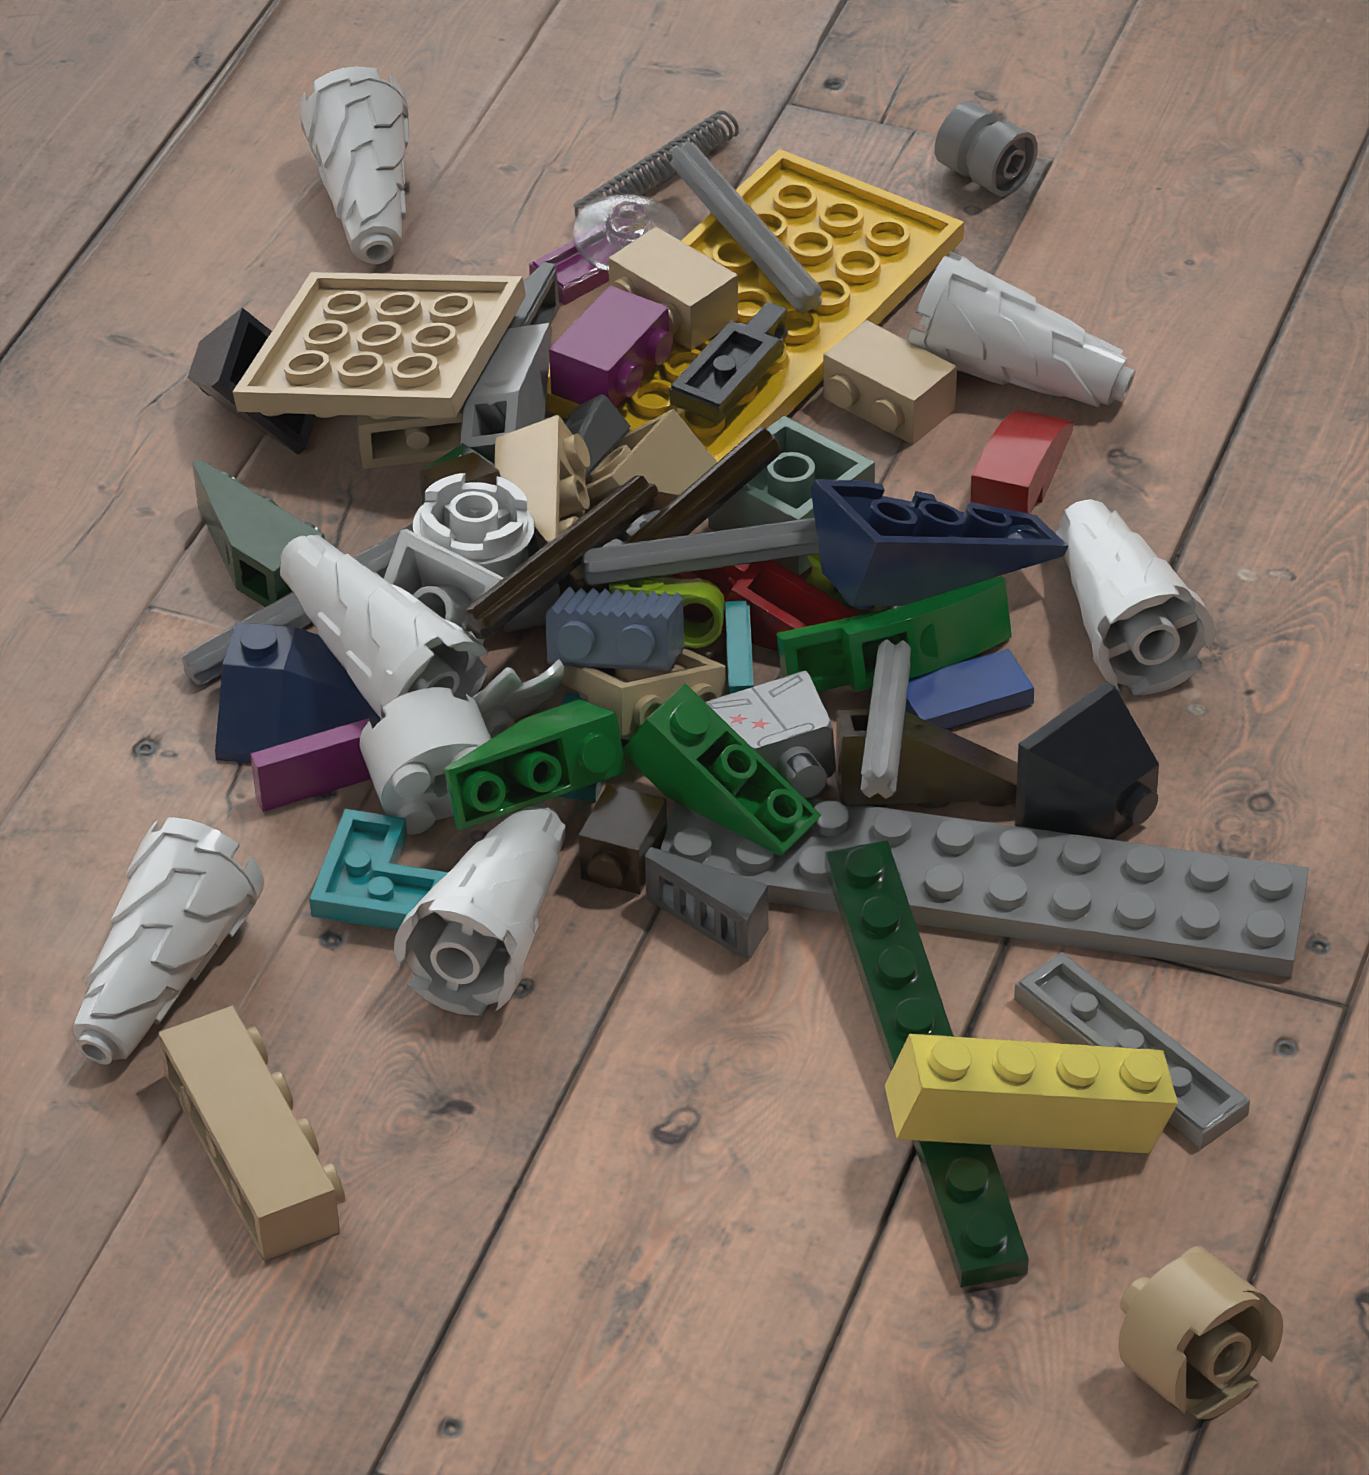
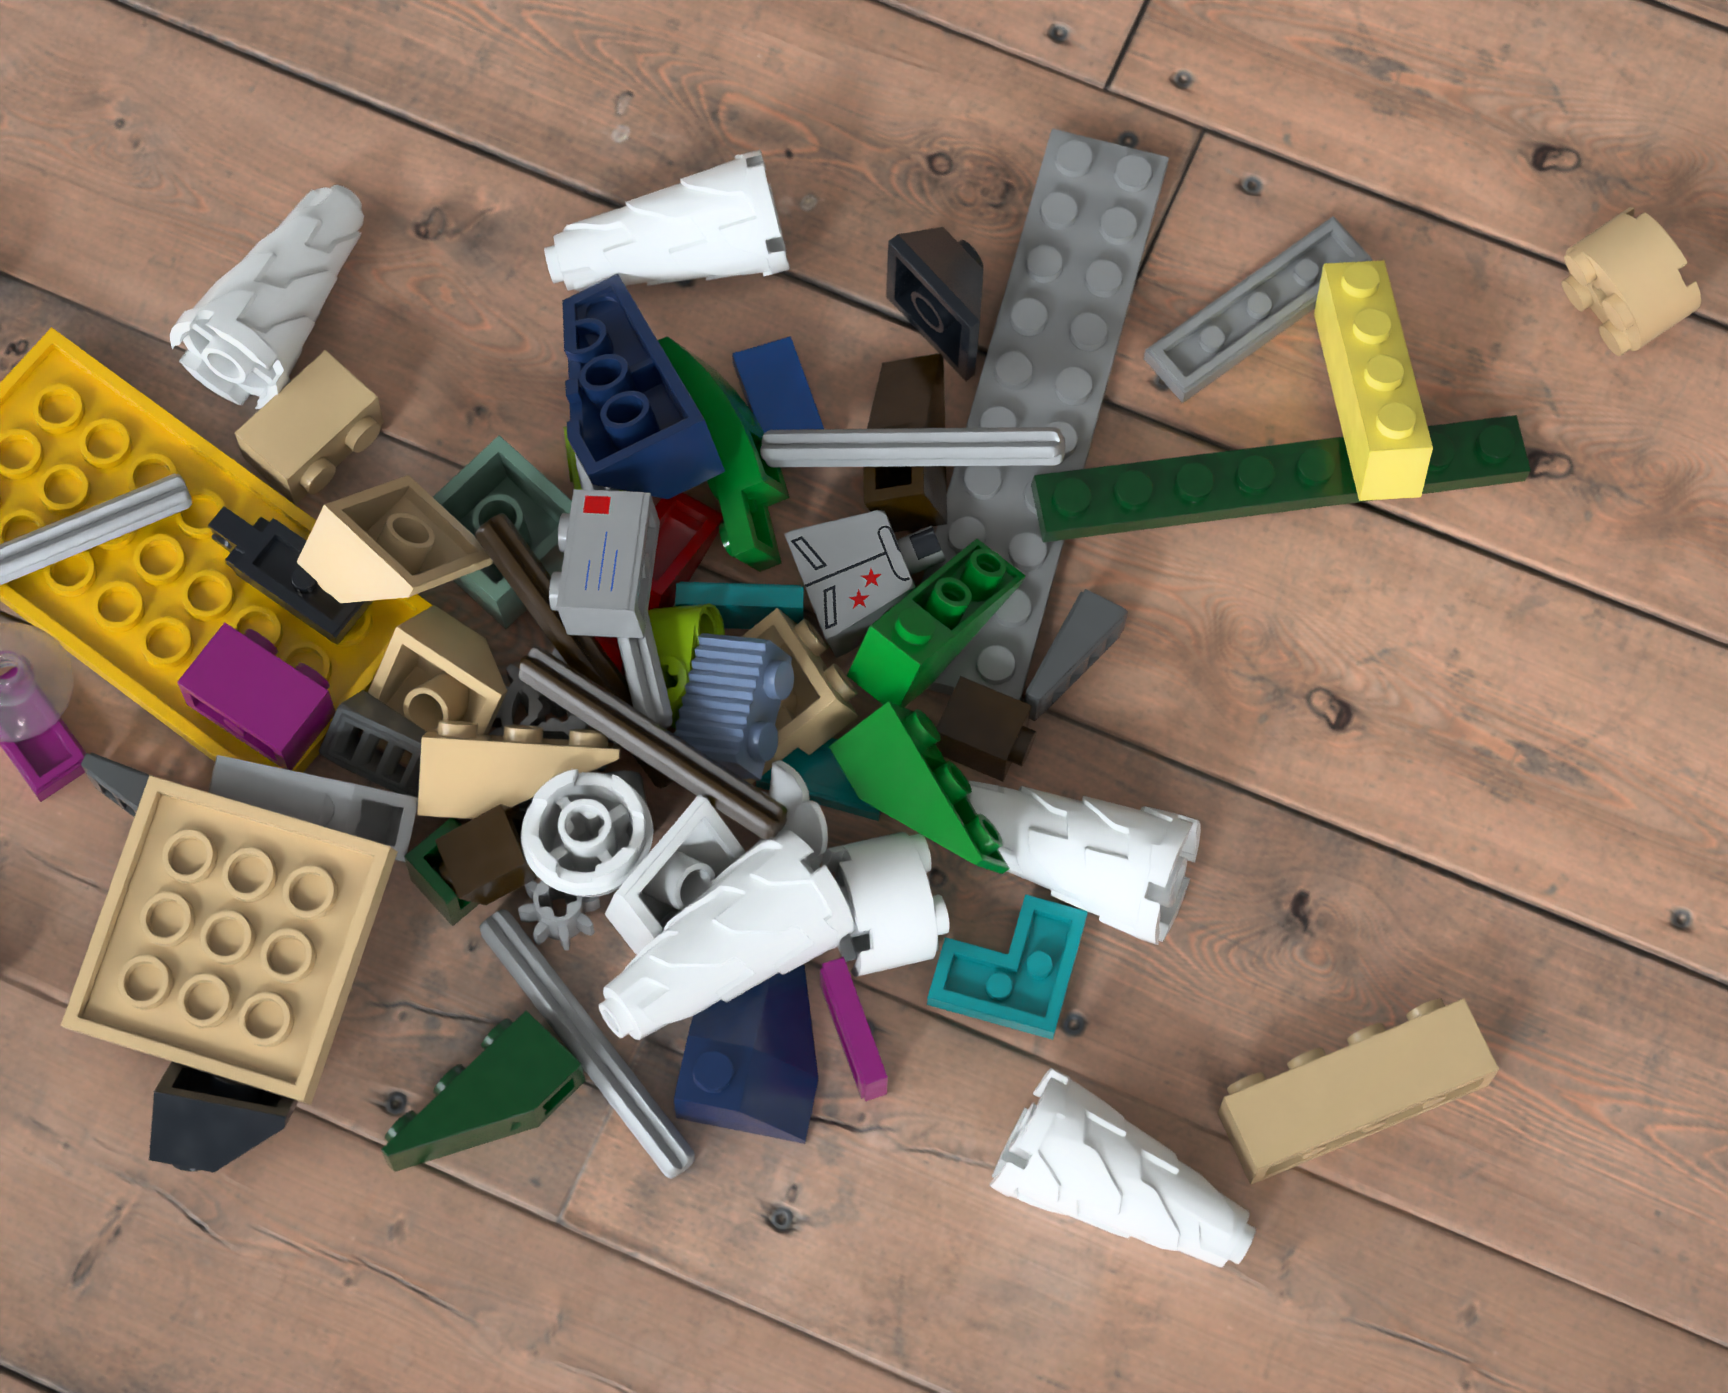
camera: 90 degrees left, 25 degrees up
(671, 273) = (156, 626): tan brick -> none
(730, 505) = (606, 563): none -> light grey brick
(749, 382) = (388, 544): none -> tan slope
(1020, 461) = (452, 311): red slope -> none

